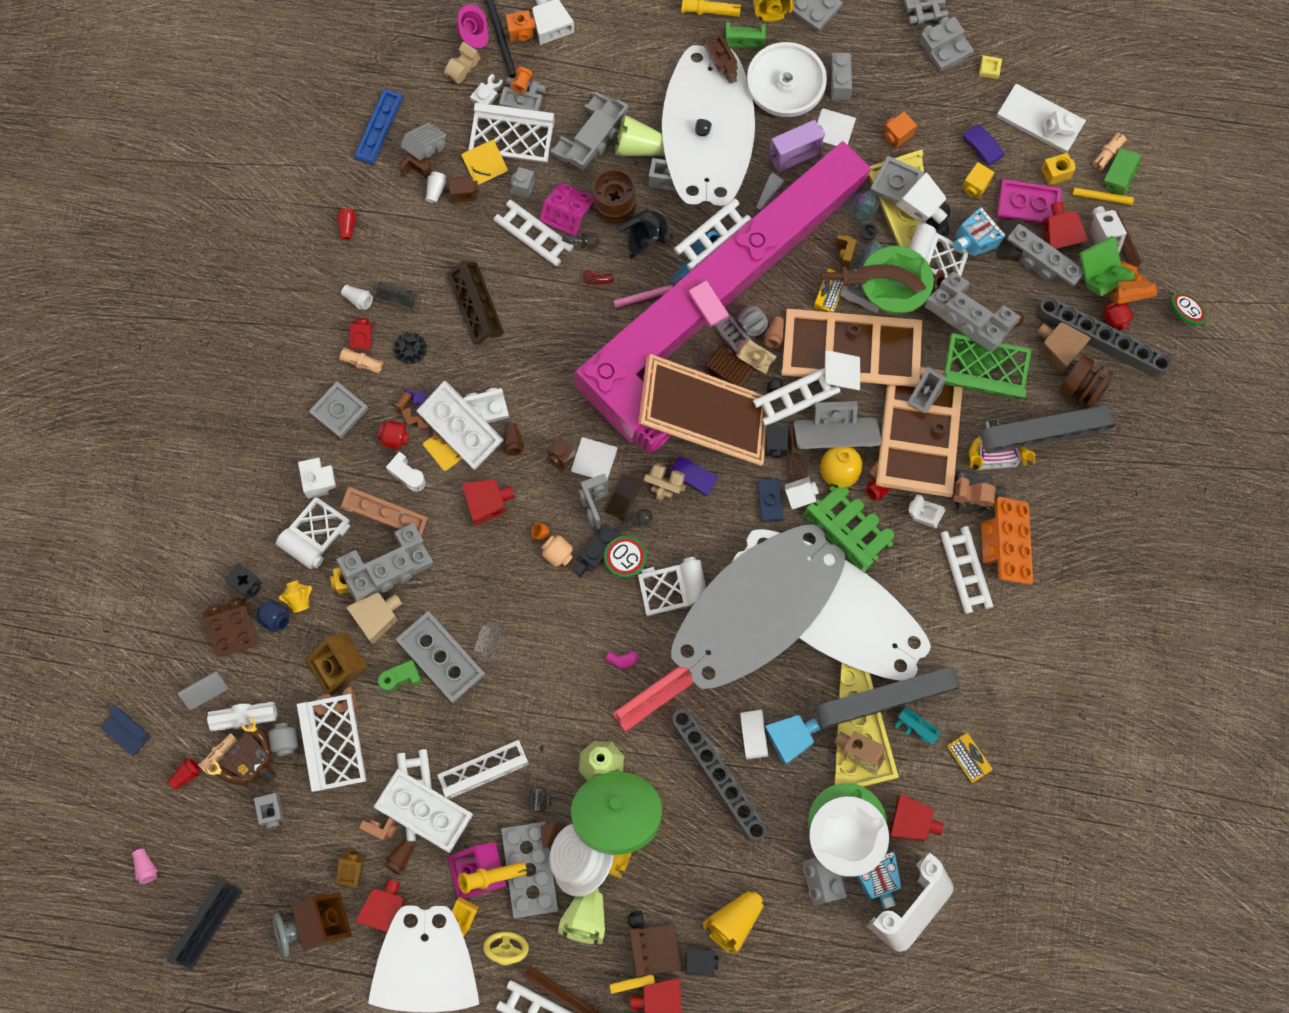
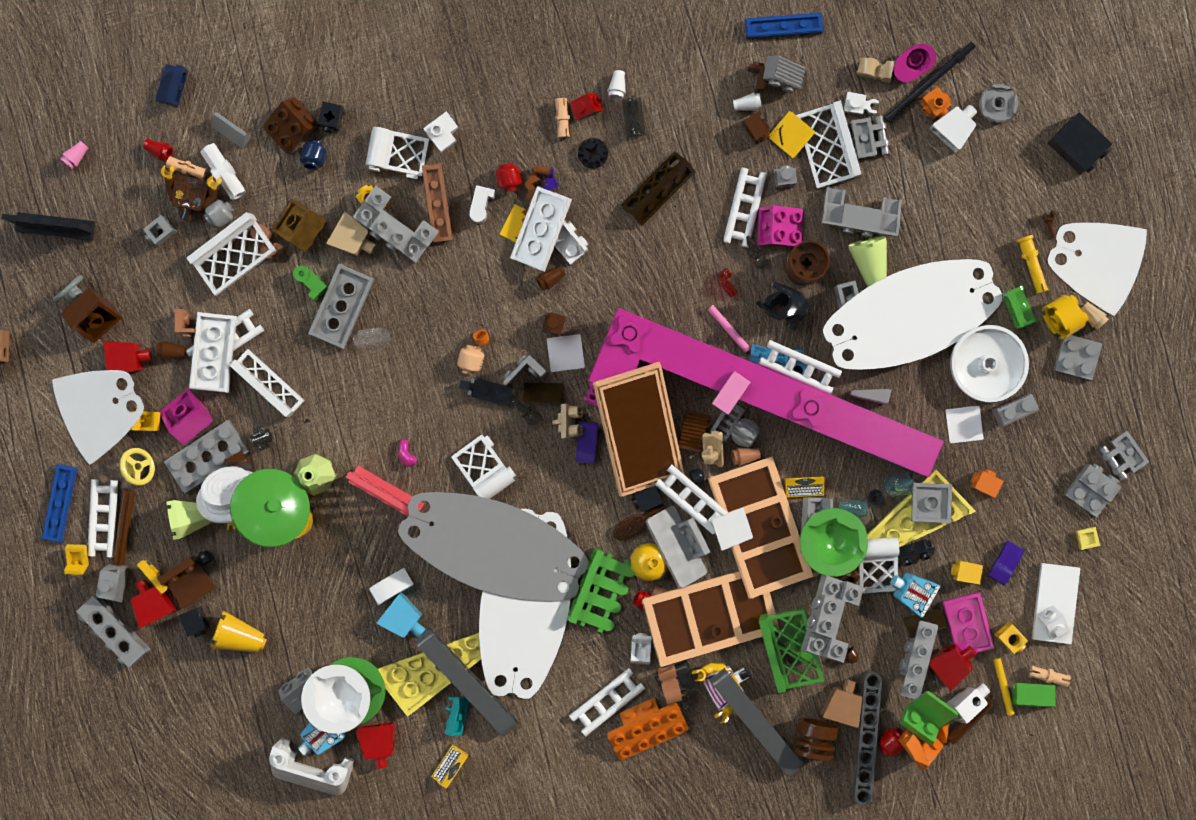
camera: 65 degrees right, 15 degrees up
(296, 596) = (337, 166): yellow rock -> none
(338, 410) = (510, 120): light grey plate -> none
(346, 221) = (679, 43): red cone -> none
(350, 868) = (144, 316): pearl gold bracket -> none
(482, 878) = (175, 427): yellow pin -> none
(486, 499) = (487, 280): red torso -> none
(521, 80) = (880, 130): orange bush -> none
(625, 556) = (490, 417): piece -> none
(703, 127) = (904, 311): black hinge -> none
(717, 764) = (337, 577): dark grey beam -> none
(722, 56) = (986, 296): reddish brown hinge -> none
(770, 500) = (594, 515): dark blue plate -> none
(796, 146) = (926, 401): lavender window -> none
(801, 492) = (609, 539): white brick -> none
(848, 246) = (845, 486): pearl gold bracket -> none
(869, 756) = (407, 688): medium nougat torso -> none
(873, 272) = (832, 522): reddish brown sword -> none
(923, 201) = (920, 534): white torso -> none
(927, 390) = (745, 608): light grey slope -> none
(1188, 308) = (926, 800): piece -> none

